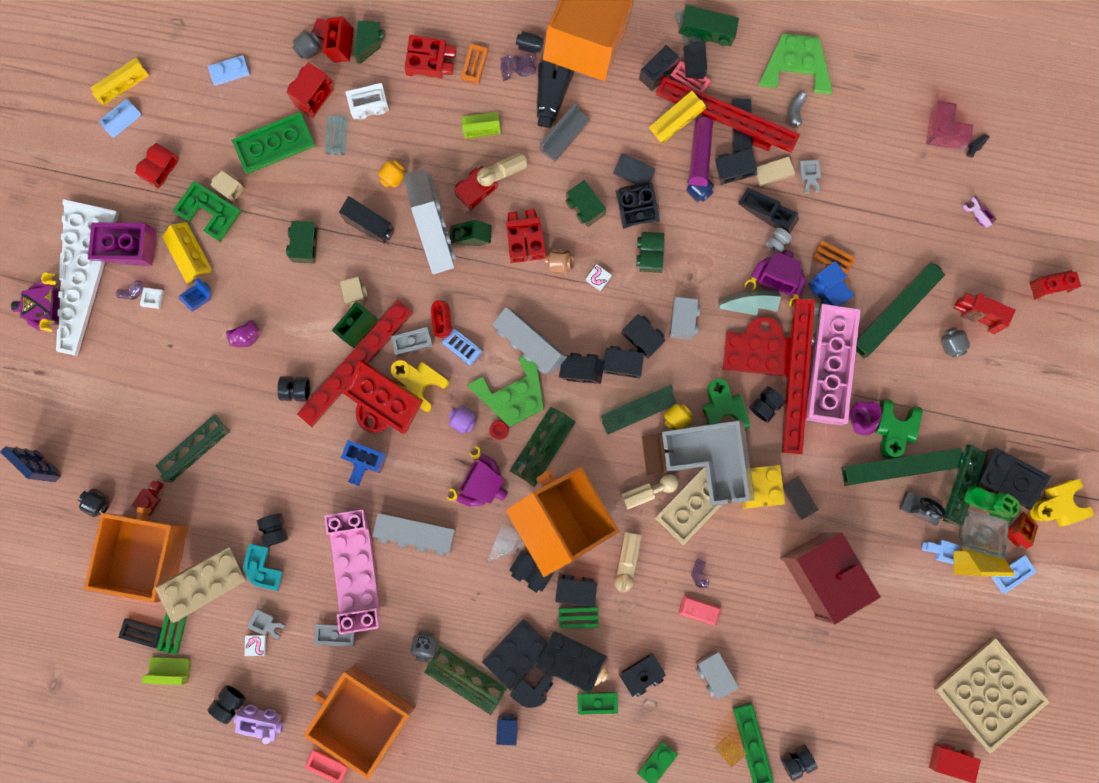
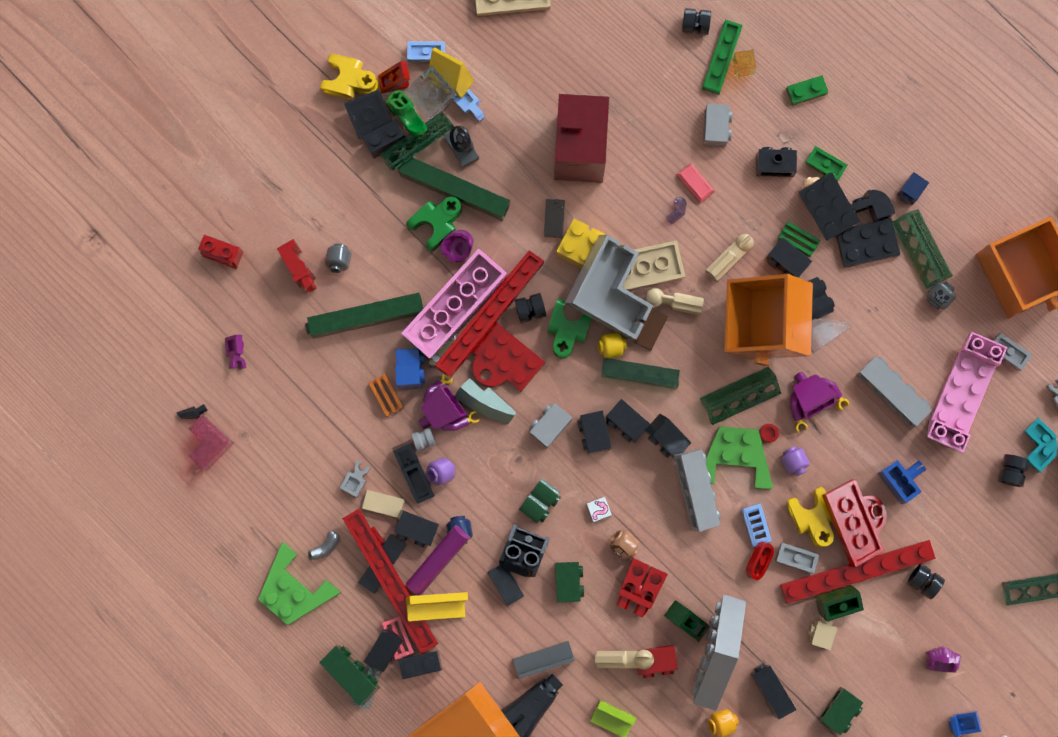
camera: 145 degrees left, 0 degrees up
(747, 223) = (440, 471): none -> medium lavender head

